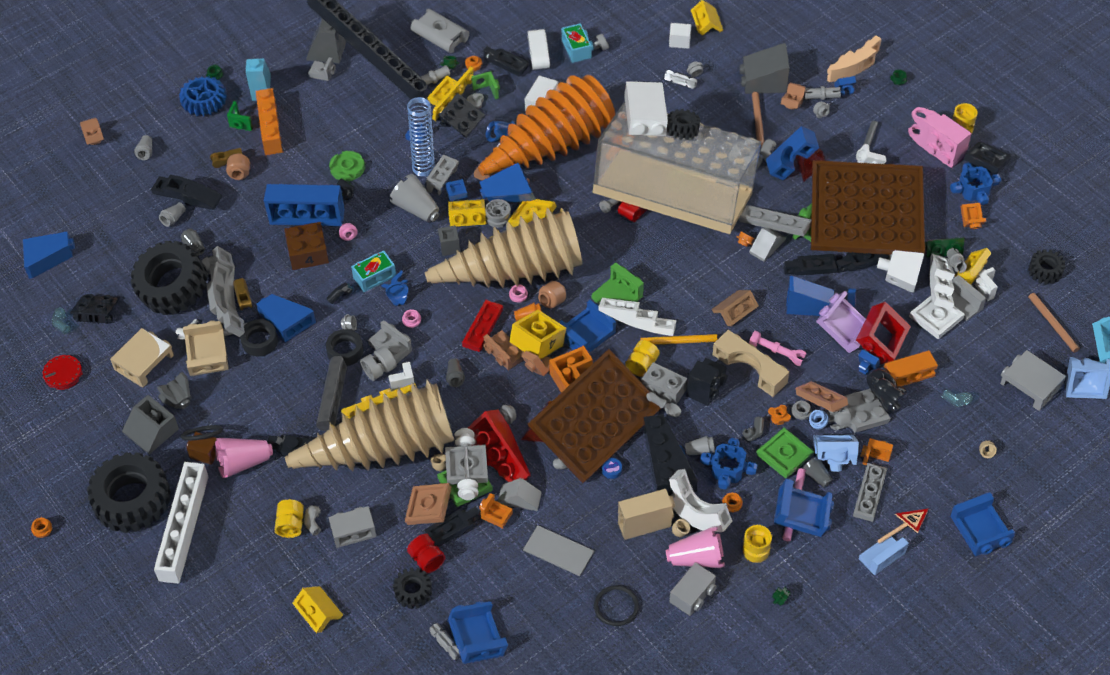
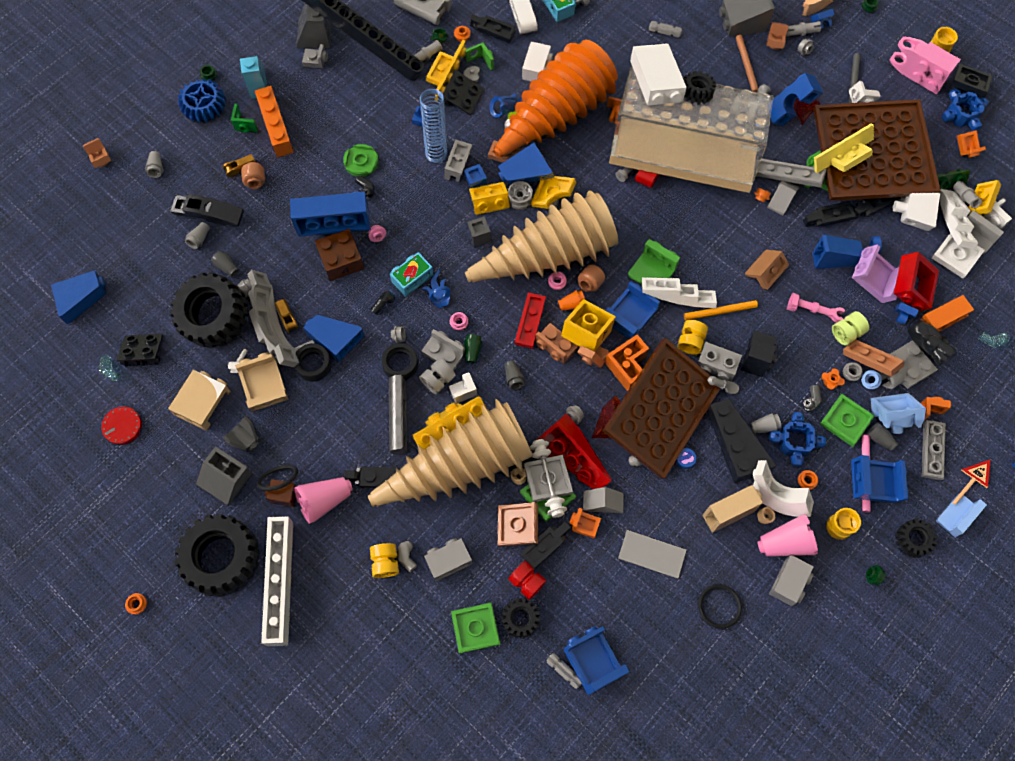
camera: 10 degrees left, 15 degrees up
(316, 607) = (431, 653): yellow panel -> none
(365, 591) = (475, 628): none -> bright green plate
(415, 199) = (437, 191): light grey cone -> none
(420, 340) = (472, 347): none -> dark green cone
(695, 69) = (677, 16): light grey plate -> none
(733, 349) = (816, 338): tan arch -> none
(808, 368) = (850, 328): none -> yellowish green wheel
(831, 557) = (906, 544): none -> black tyre
(832, 204) = (847, 152): none -> light yellow bracket

